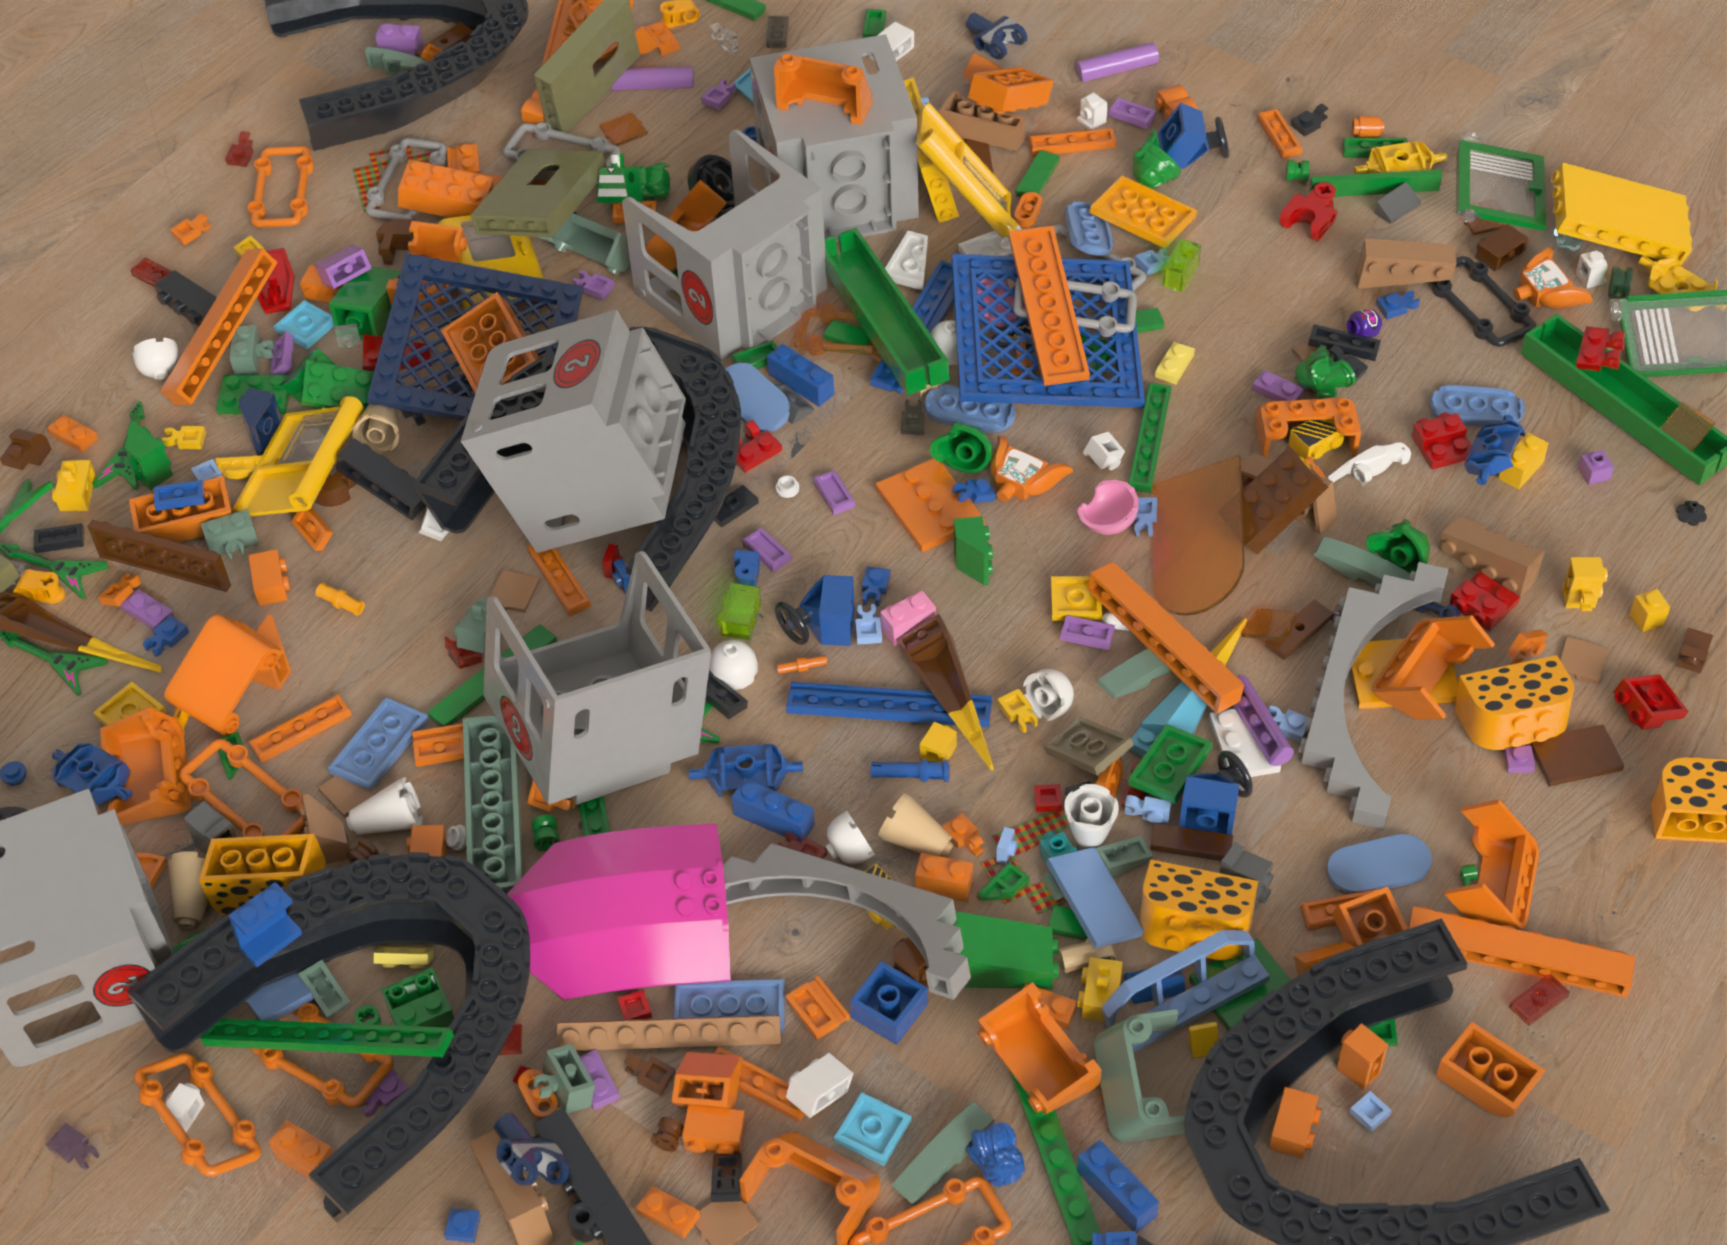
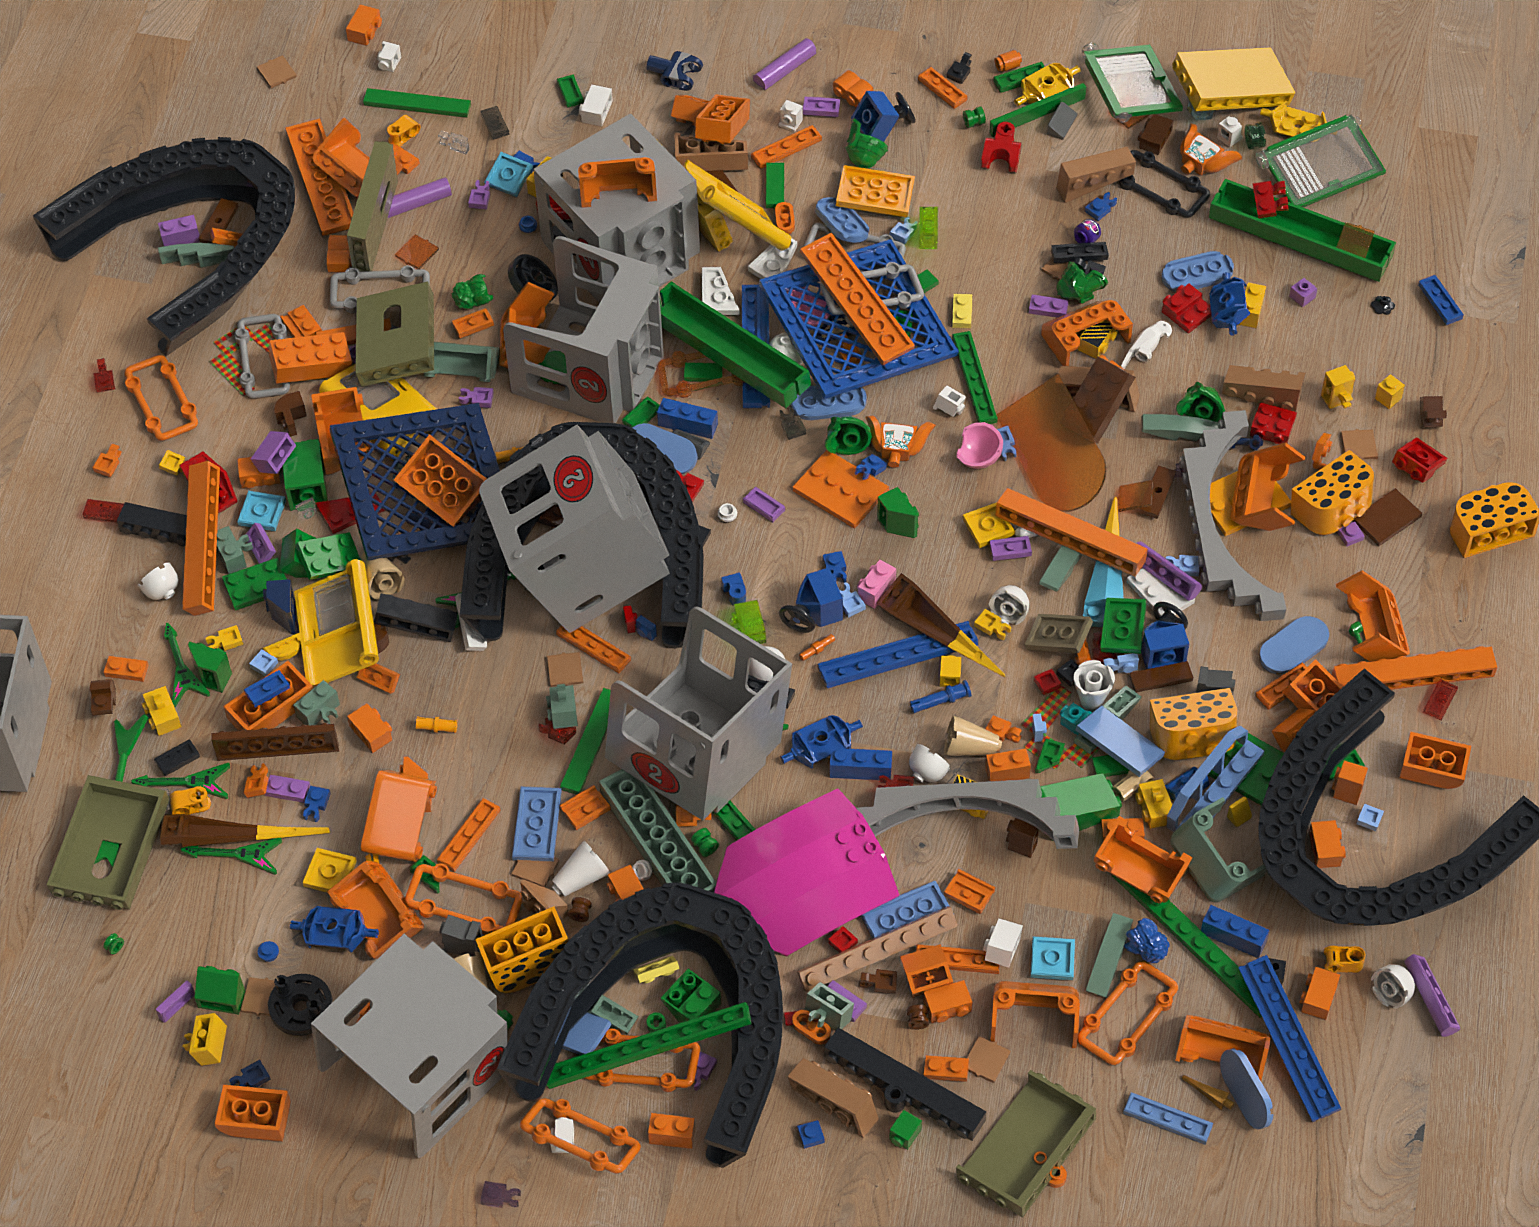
camera: 25 degrees left, 5 degrees up
(263, 925) = (576, 982): blue panel -> none
(522, 1153) = (837, 1066): dark blue connector -> none
(618, 182) = (452, 303): green torso -> none
(726, 1177) = (974, 1029): black plate -> none
(770, 551) = (733, 564): medium lavender tile -> none
(889, 1002) = (1019, 868): blue brick -> none

